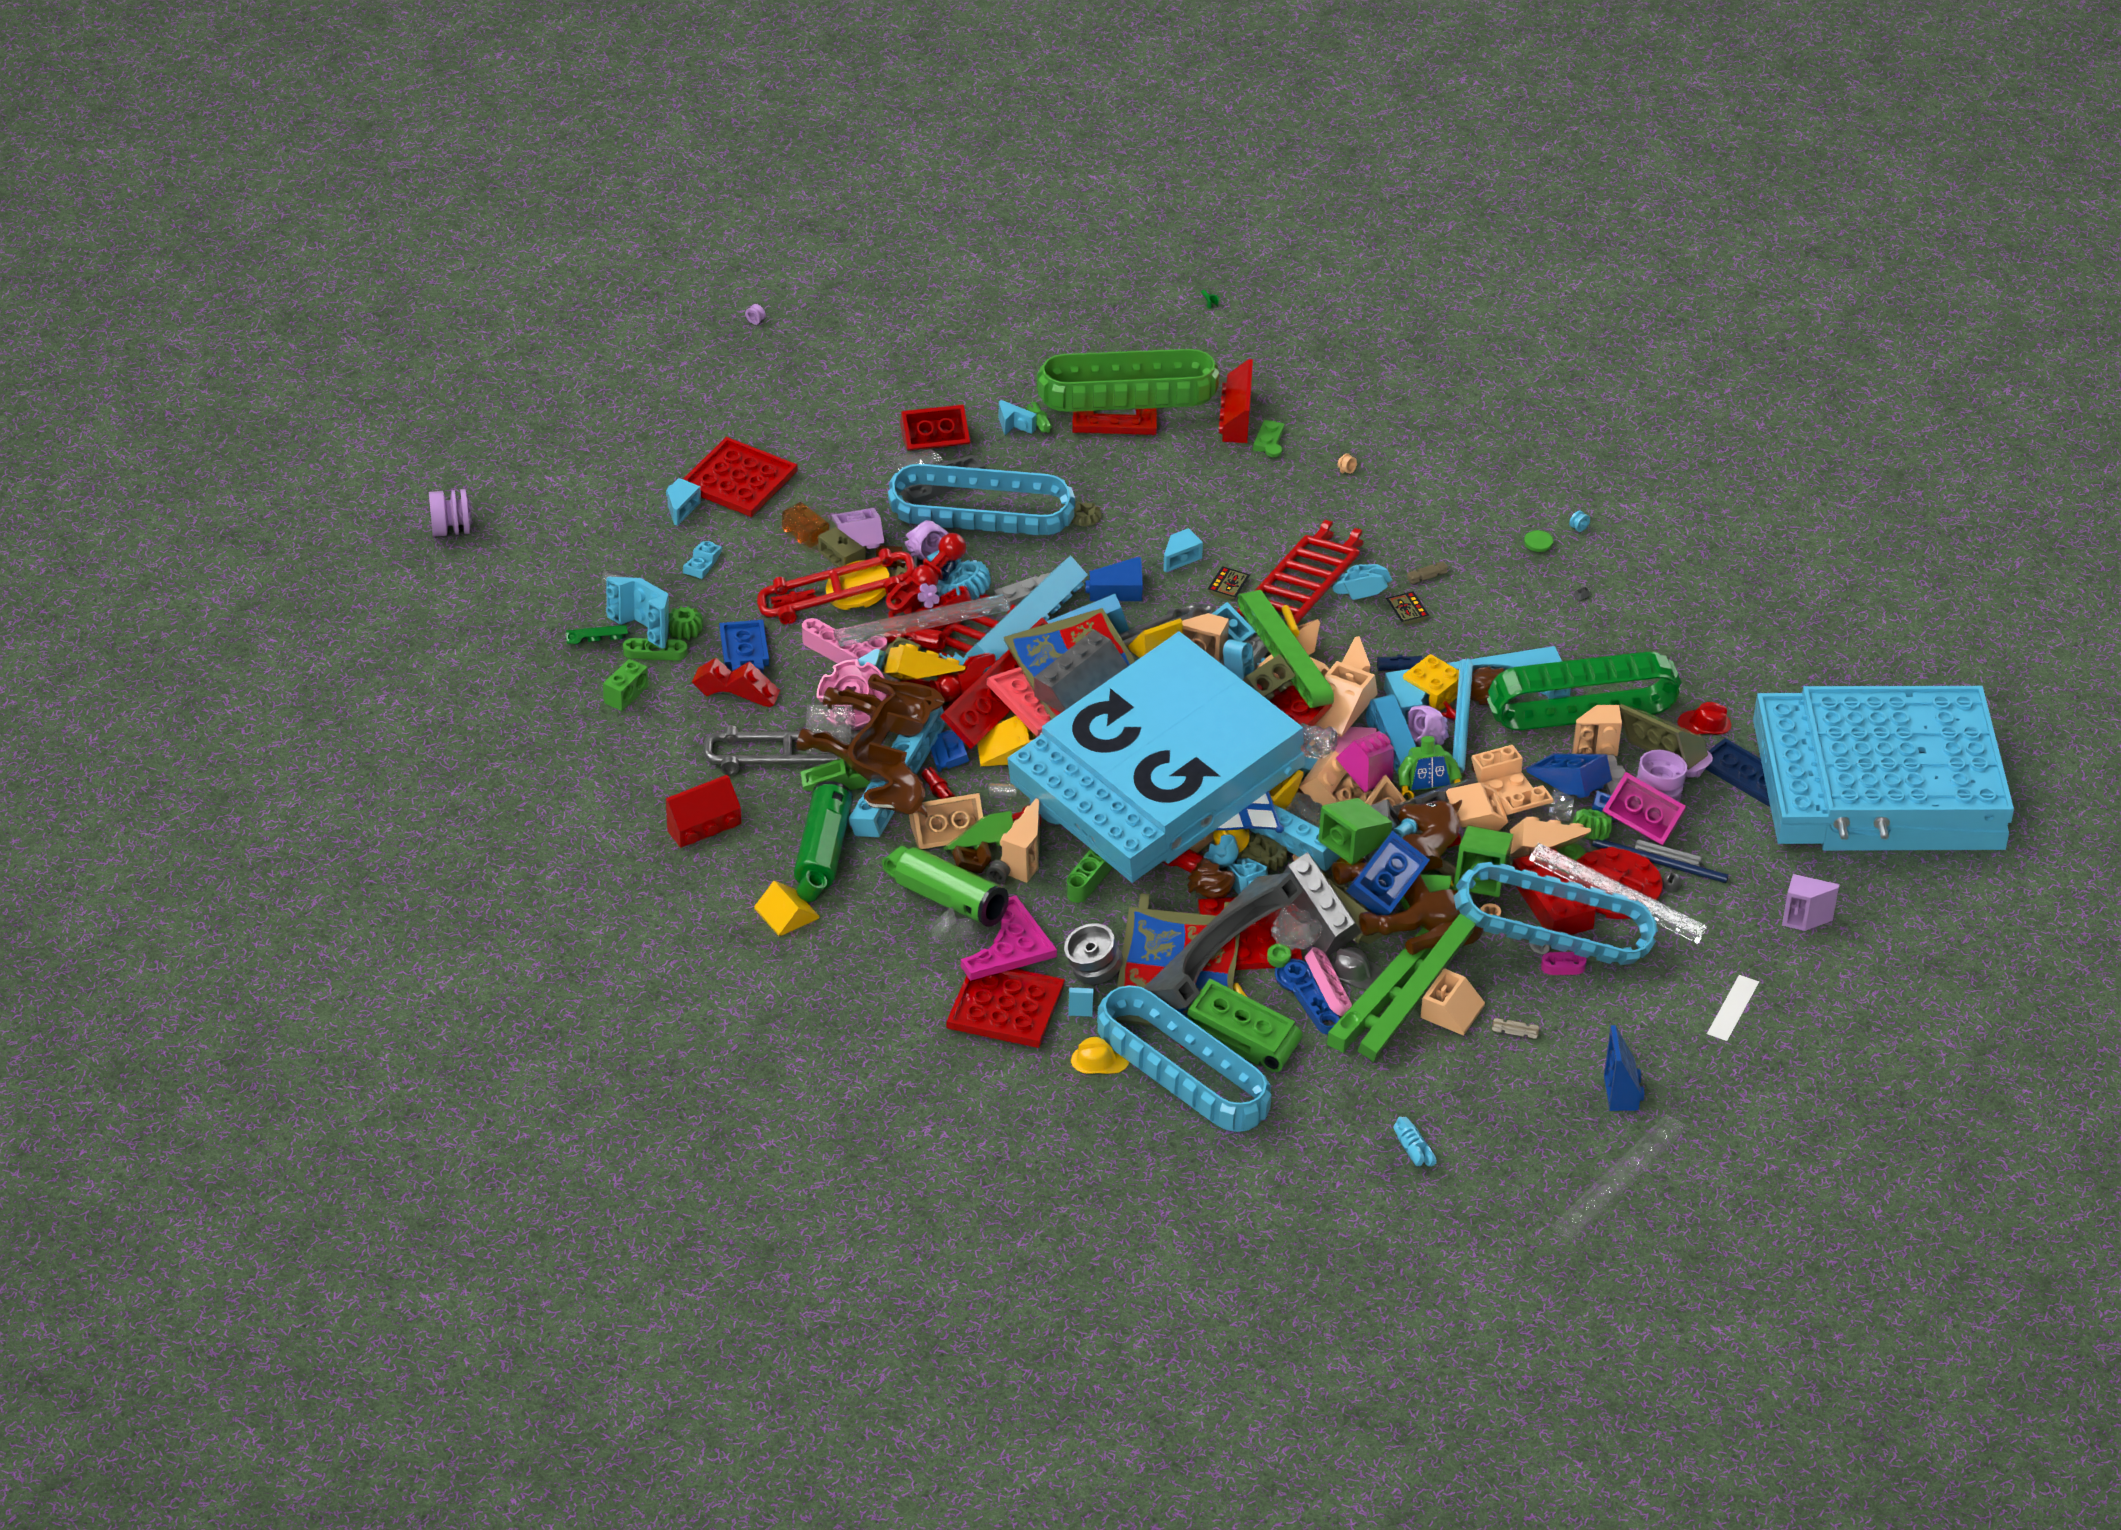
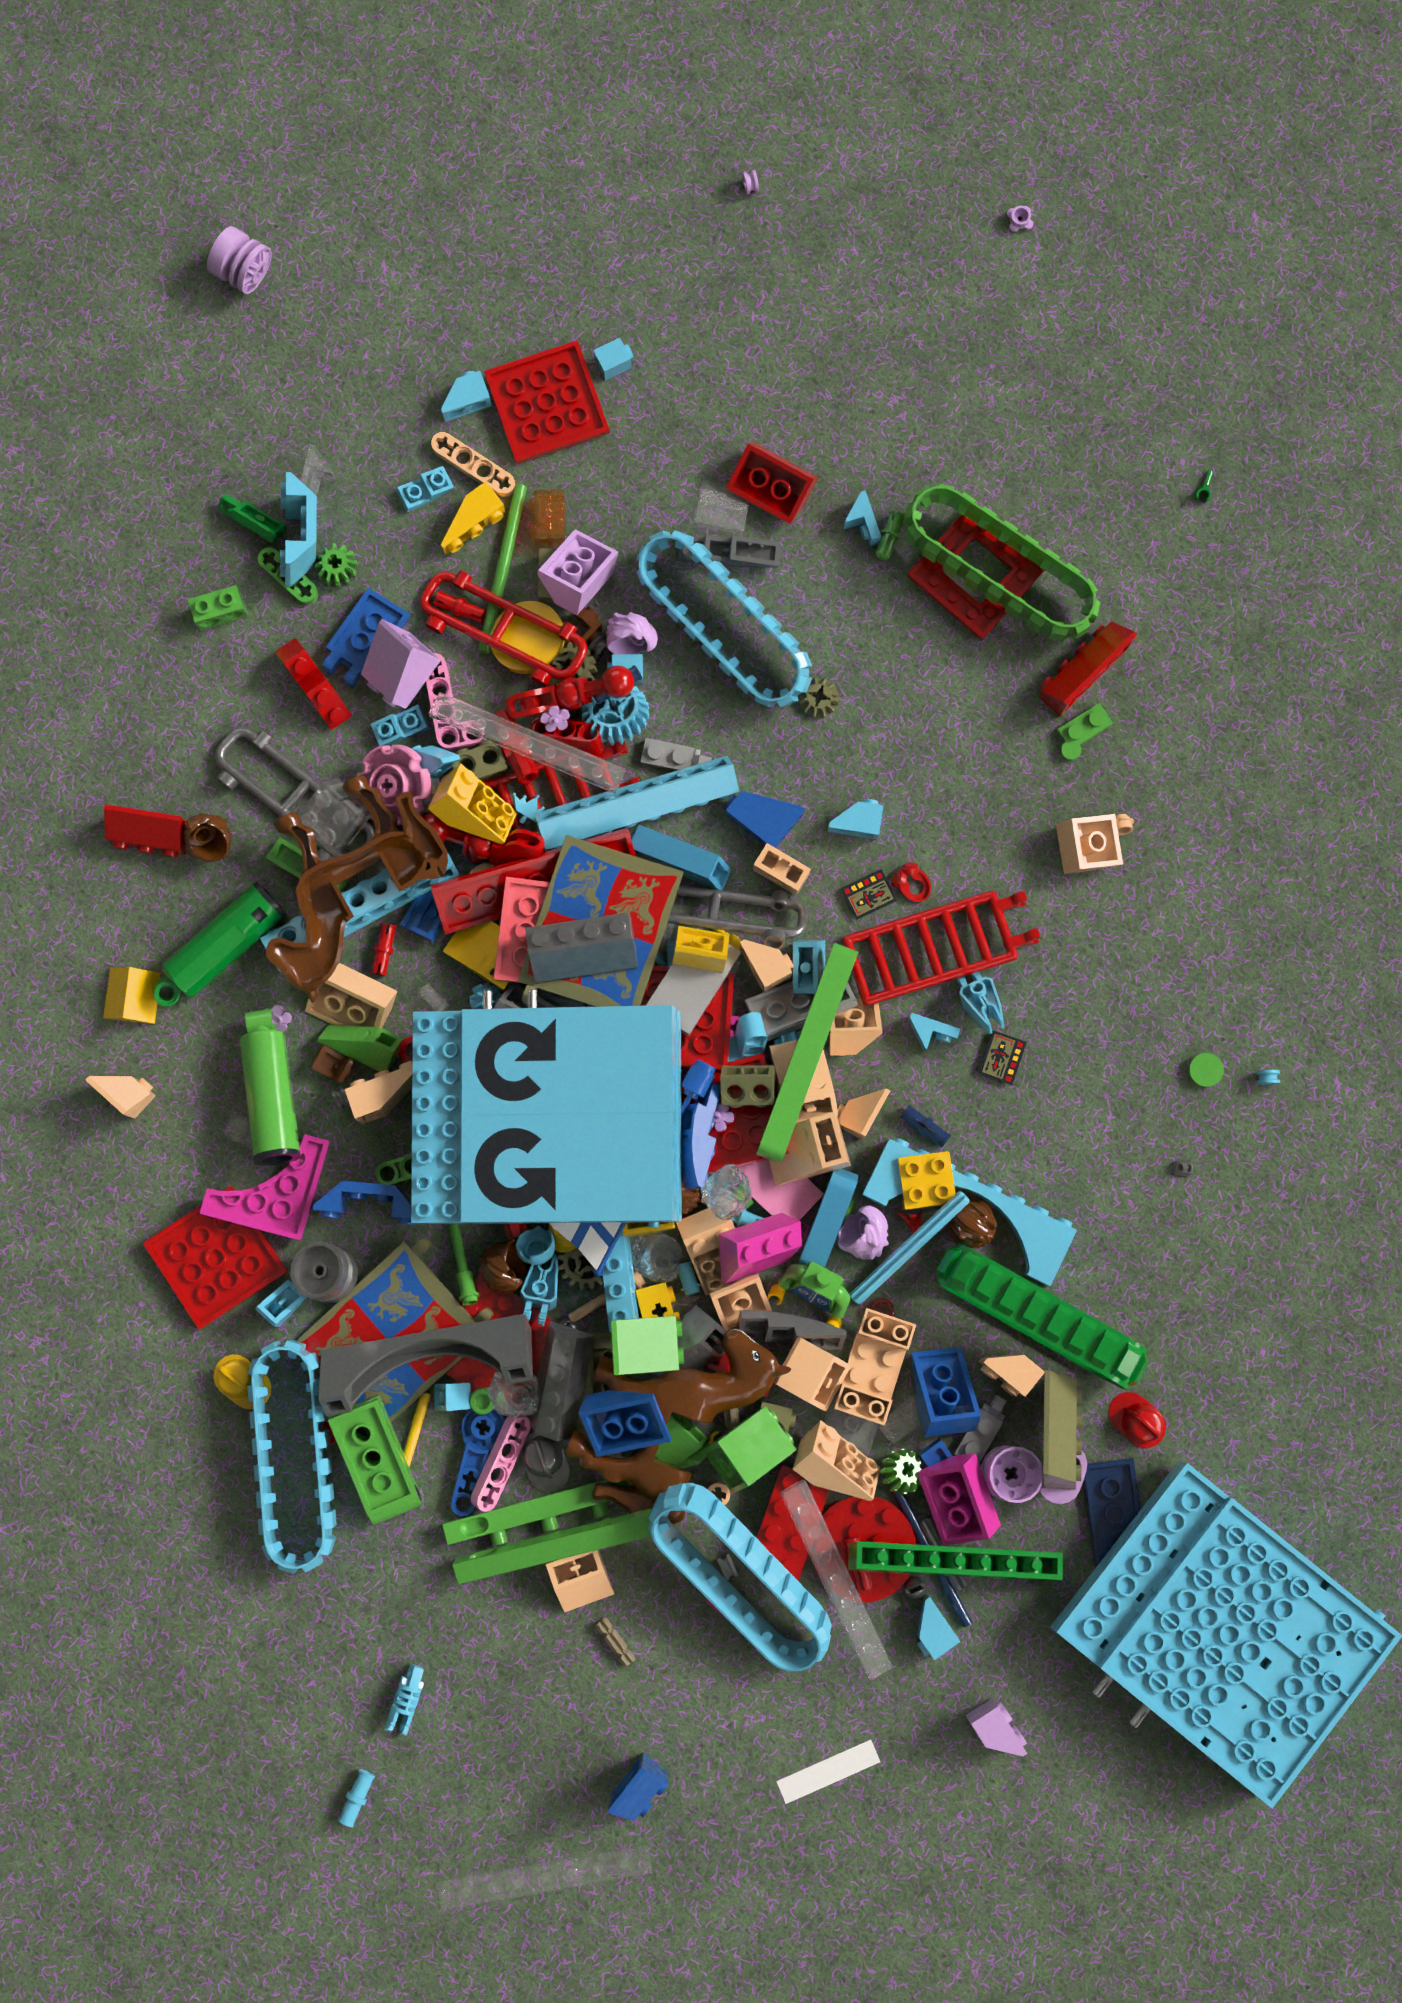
camera: 40 degrees right, 40 degrees up
(722, 531) = (471, 467): none -> light nougat beam
(753, 549) = (475, 513): none -> yellow slope
(754, 790) = (207, 837): none -> reddish brown hair
(760, 433) = (613, 358): none -> medium azure brick
(788, 630) = (397, 664): none -> lavender slope
(797, 564) = (504, 561): none -> bright green piece
(813, 676) = (400, 726): none -> medium azure slope
(838, 954) = (124, 1092): none -> light nougat slope
(948, 245) = (1023, 212): none -> lavender plate
(1082, 891) = (336, 1200): none -> blue slope
(1159, 594) = (781, 869): none -> light nougat brick
(1192, 903) = (464, 1276): none -> bright green pin
(1240, 562) = (899, 881): none -> red piece
(1251, 965) = (452, 1396): none -> medium azure slope
(1290, 620) = (856, 1010): yellow bar -> none
(1337, 479) = (1089, 843): none -> light nougat slope
(1346, 616) = (925, 1027): none -> medium azure slope
(1407, 827) = (711, 1358): medium azure pin -> none
(1427, 572) = (1063, 1027): dark tan axle -> none
(1443, 1216) = (356, 1798): none -> medium azure pin
(1678, 833) = (955, 1561): none -> green brick
(1707, 887) = (934, 1631): none -> medium azure slope

